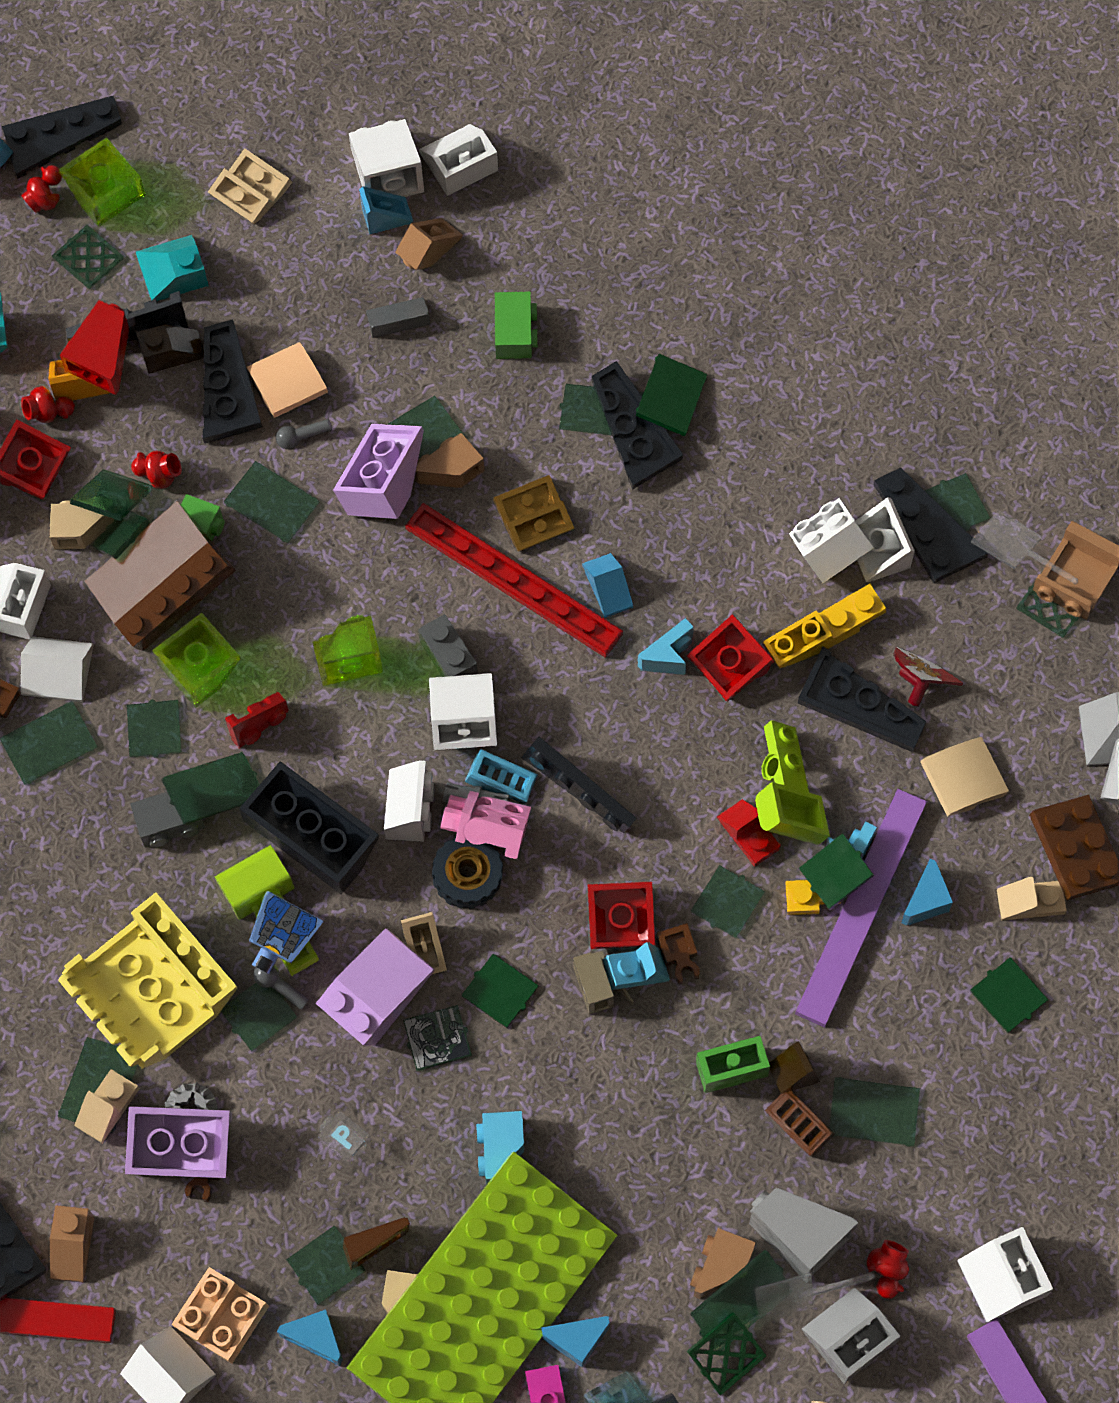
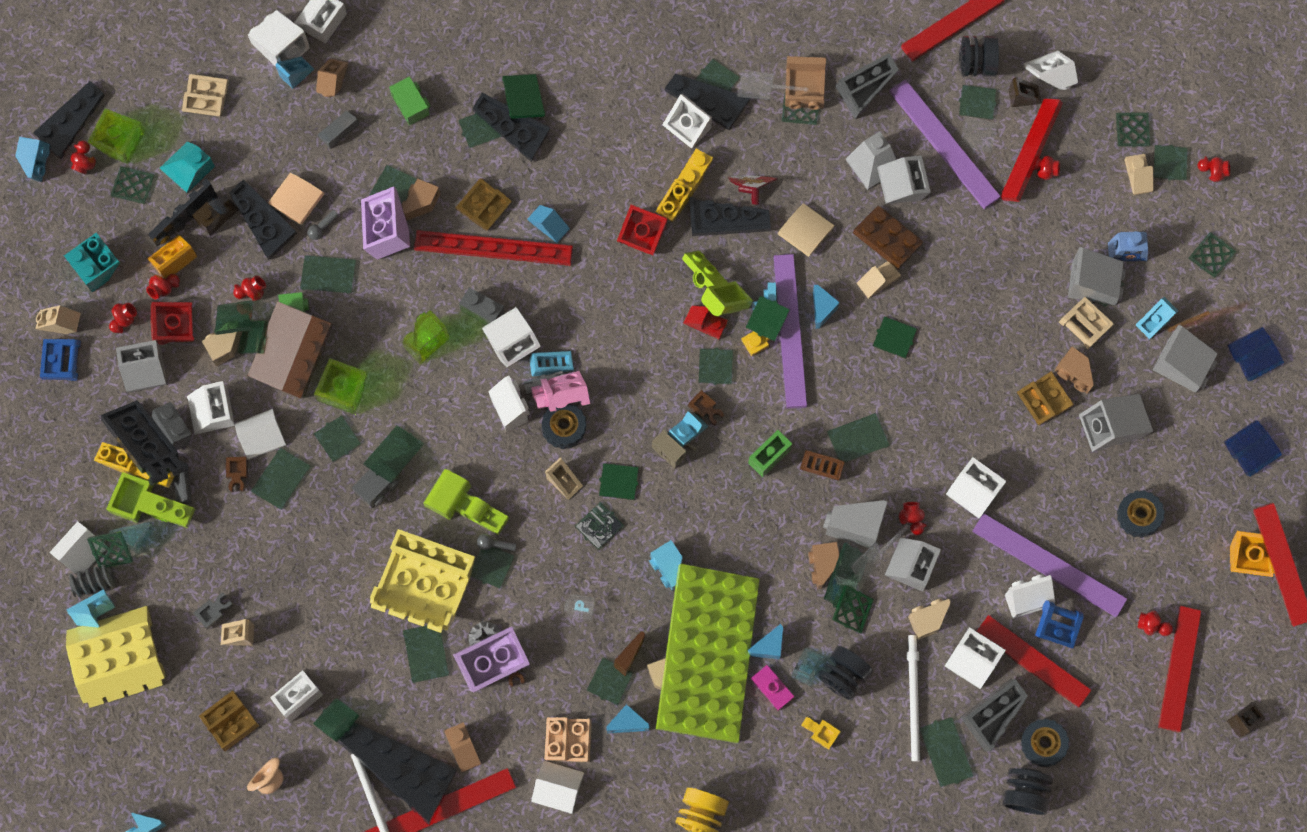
camera: 30 degrees left, 5 degrees up
(99, 347) = (178, 236): red slope -> none
(105, 1106) = (437, 662): tan slope -> none
(261, 715) = (396, 399): red wing -> none
(280, 931) = (482, 512): torso -> none
(309, 827) = (461, 447): black slope -> none
(375, 988) = (551, 516): lavender slope -> none
(575, 782) = (591, 343): black wing -> none
(621, 914) = (662, 404): red slope -> none
(662, 654) = (604, 248): medium azure slope -> none
(793, 1069) = (804, 438): dark brown slope -> none
(830, 540) = (660, 134): white slope -> none

